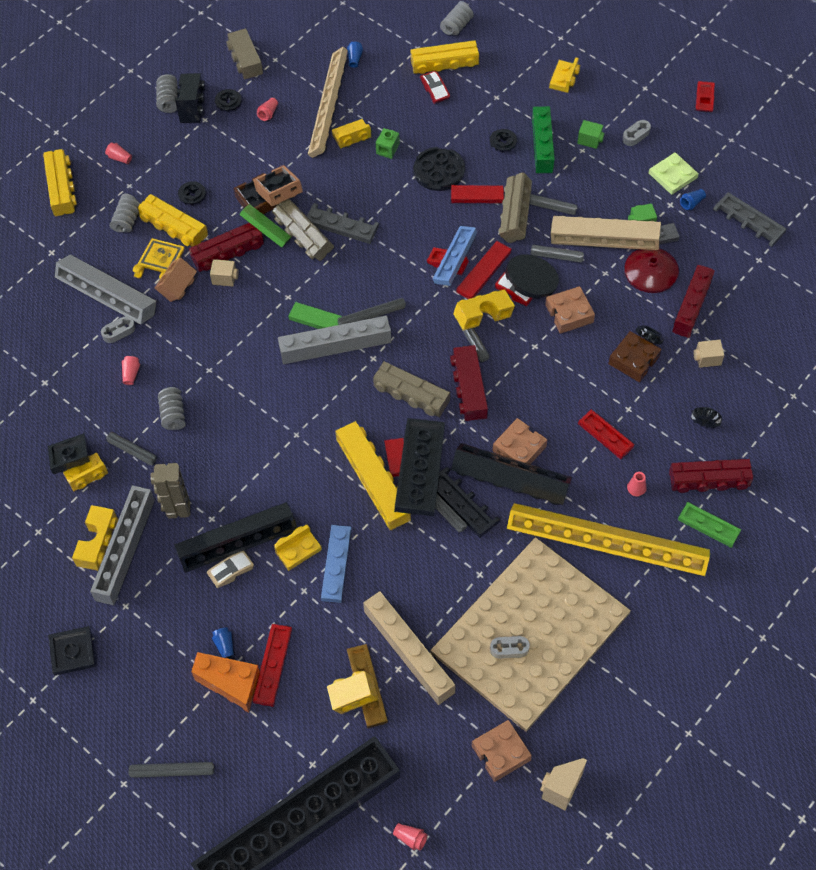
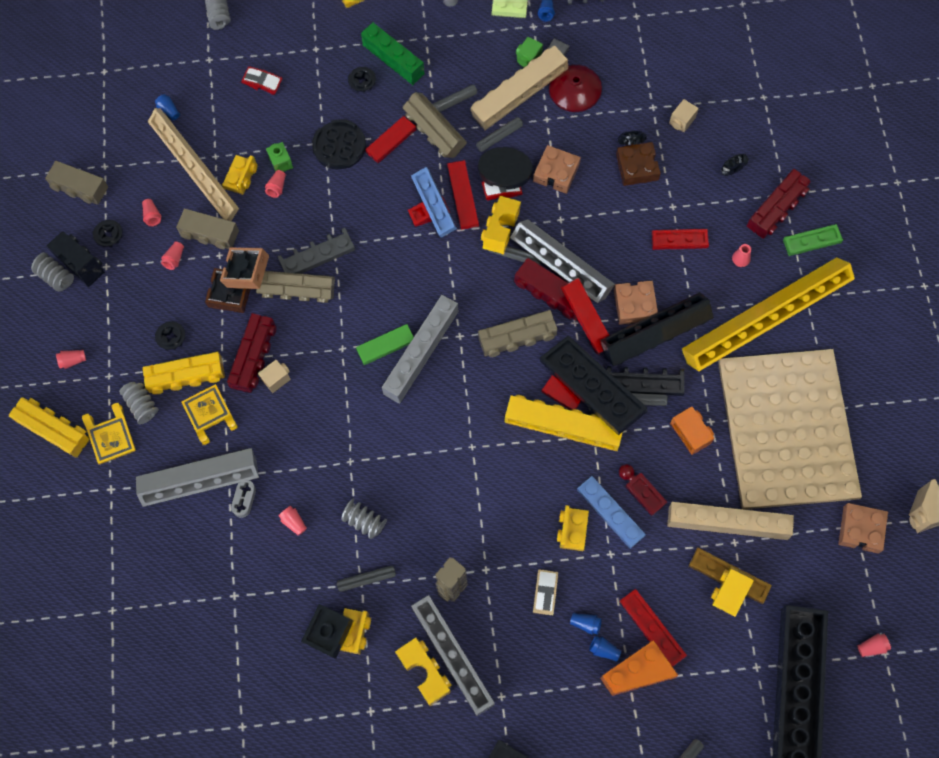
camera: 45 degrees left, 10 degrees up
(86, 221) = (111, 437): none -> yellow flag
(175, 280) = (245, 416): nougat brick -> none
(233, 616) = (587, 623): none -> blue cone
(235, 537) = (524, 566): black brick -> none
(250, 146) = (172, 256): none -> coral cone
(265, 225) = (265, 308): bright green tile -> none
(289, 148) = (207, 229): none -> dark tan brick
(364, 158) = (275, 184): none -> coral cone
(373, 312) = (422, 302): dark grey axle -> none
(373, 569) = (642, 490): none -> dark red plate
(444, 57) = (242, 49): yellow brick -> none
(455, 564) = (692, 430): none -> orange brick
(471, 414) = (585, 313): none -> red tile
(498, 370) = (561, 260): none -> light grey brick
(512, 650) = (797, 455): light grey beam -> none
(590, 134) = (421, 19): bright green brick -> none
(693, 301) = (632, 86): dark red brick -> none

